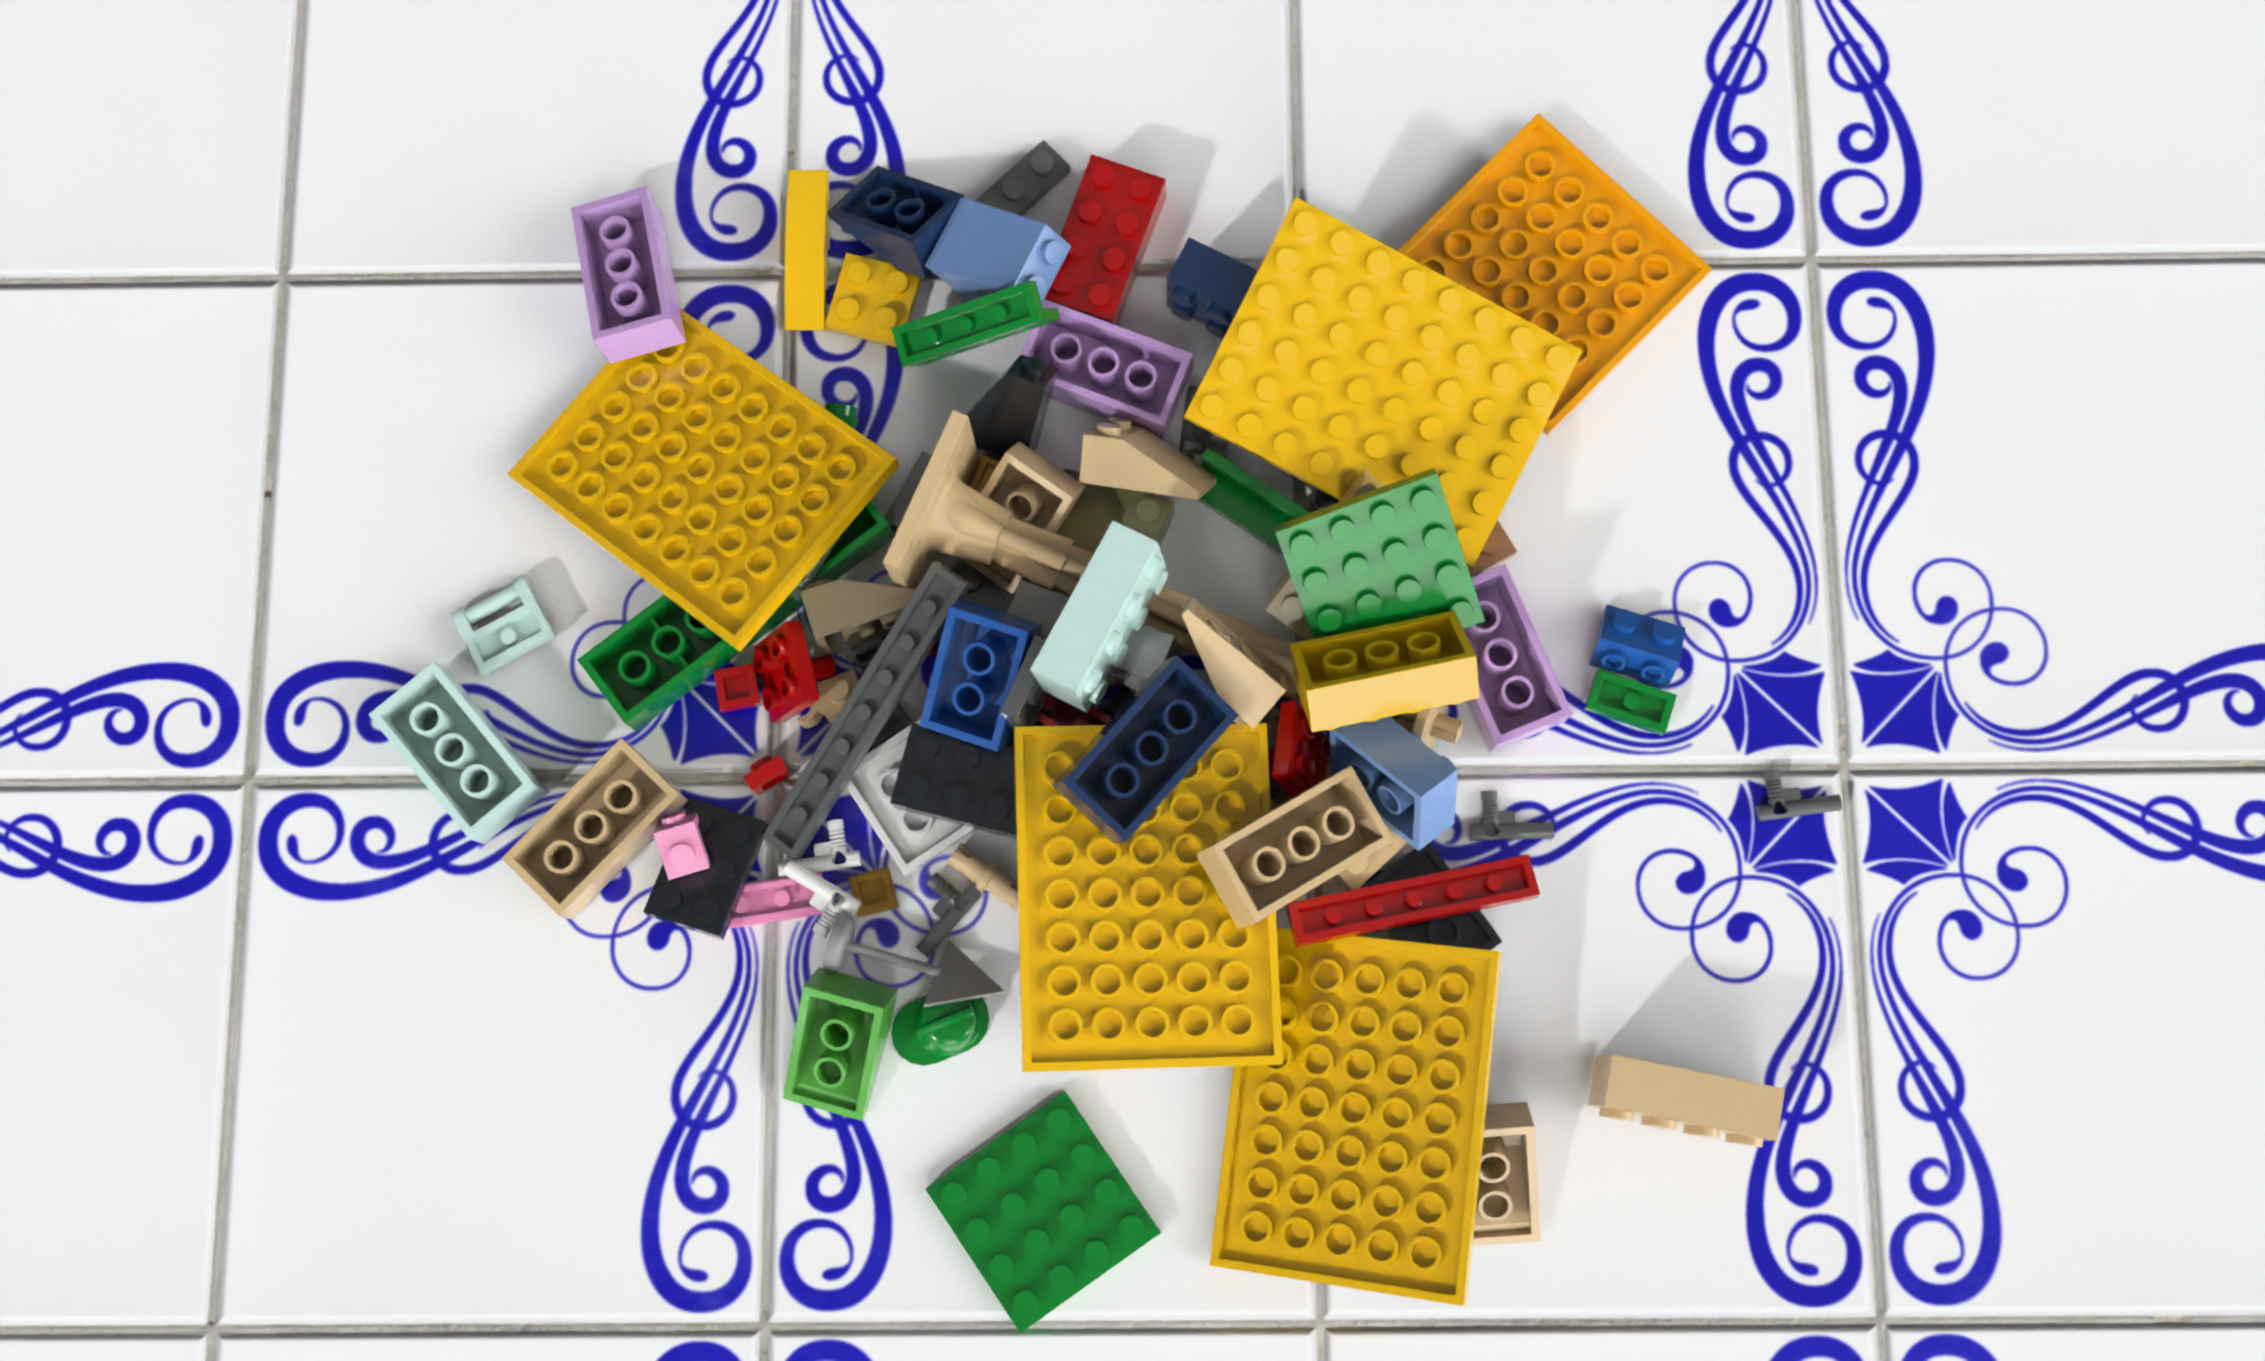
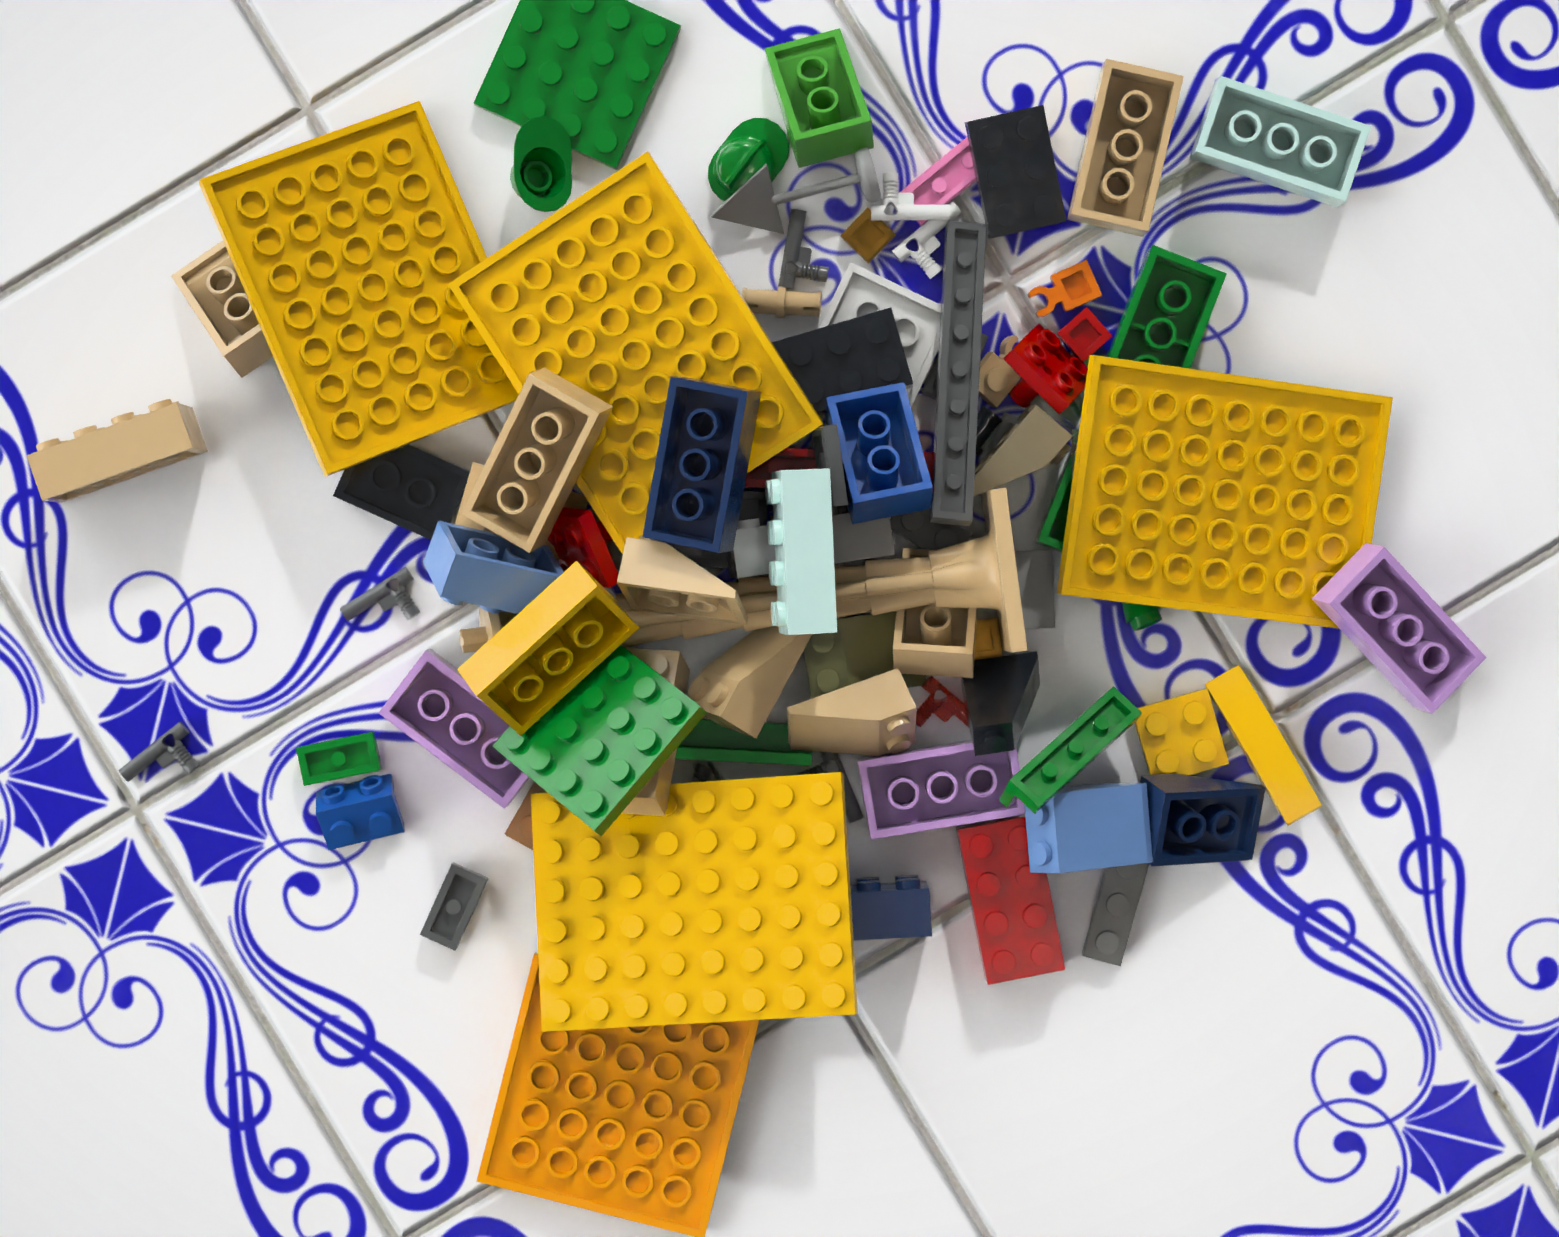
camera: 140 degrees right, 10 degrees up
(508, 635) = (1304, 265): light aqua plate -> none
(681, 844) = (1044, 175): bright pink bracket -> none
(723, 735) = (1071, 287): none -> orange plate
(767, 773) = (1014, 278): red plate -> none
(1060, 439) = (942, 708): none -> clear red hose
(1130, 1132) = (542, 164): none -> green piece
(1222, 551) = (748, 679): none -> tan slope
(1412, 900) = (420, 483): red plate -> none
(1598, 514) = (454, 906): none -> dark grey plate

